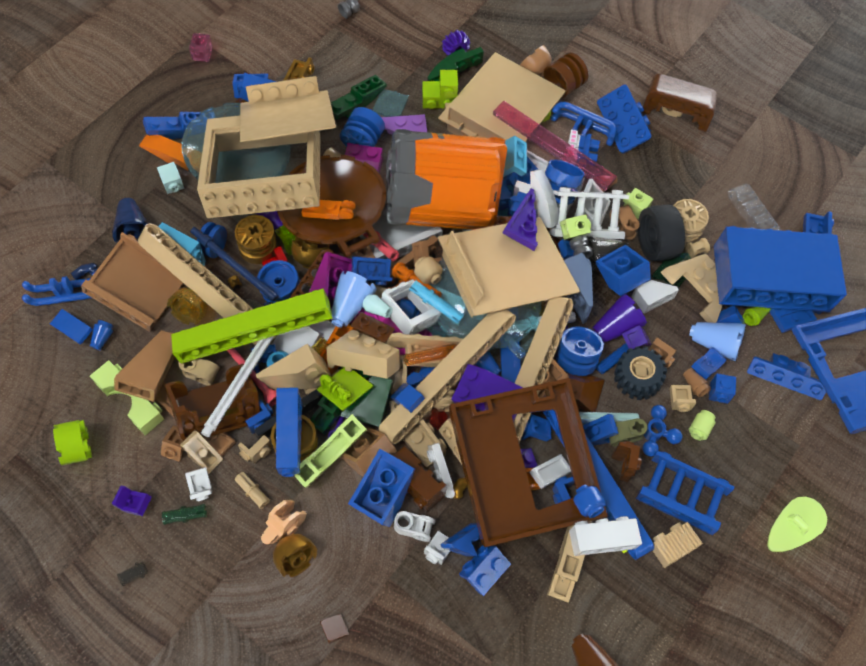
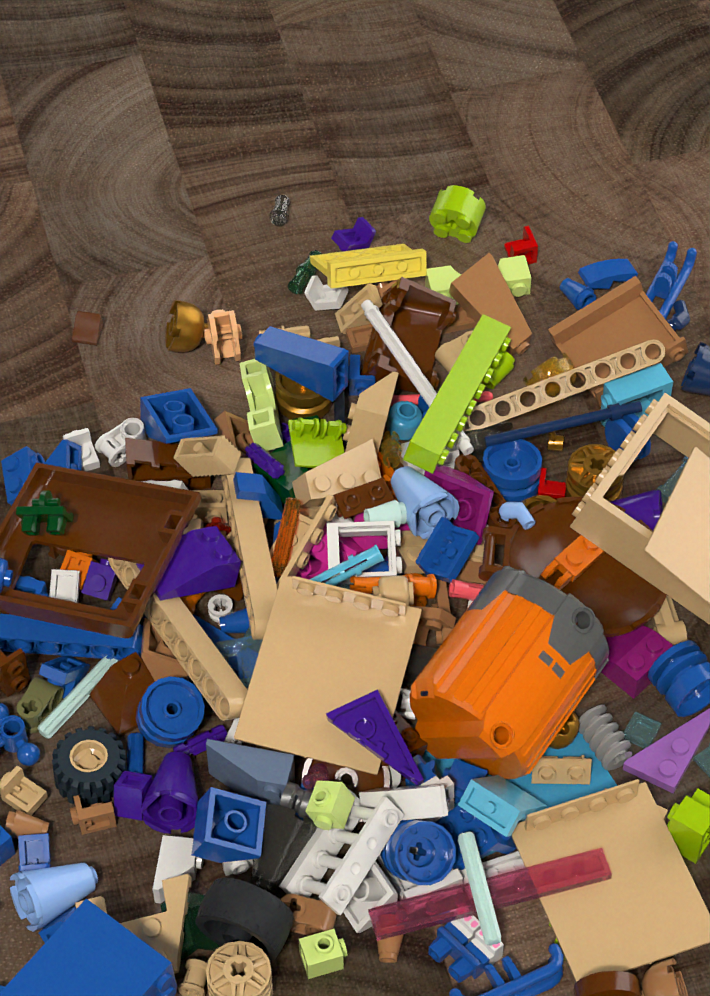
camera: 130 degrees right, 10 degrees down
(76, 390) = (525, 246): none -> red panel
(169, 455) = (370, 265): none -> light yellow fence
(322, 243) = (518, 511): none -> light blue arm
(377, 412) = (265, 460): none -> dark purple axle
(407, 436) = (207, 456): none -> tan brick
(525, 500) = (44, 510): none -> dark green hips
(558, 144) = (479, 888): none -> light aqua axle
(565, 243) = (319, 773): none -> clear pink arm

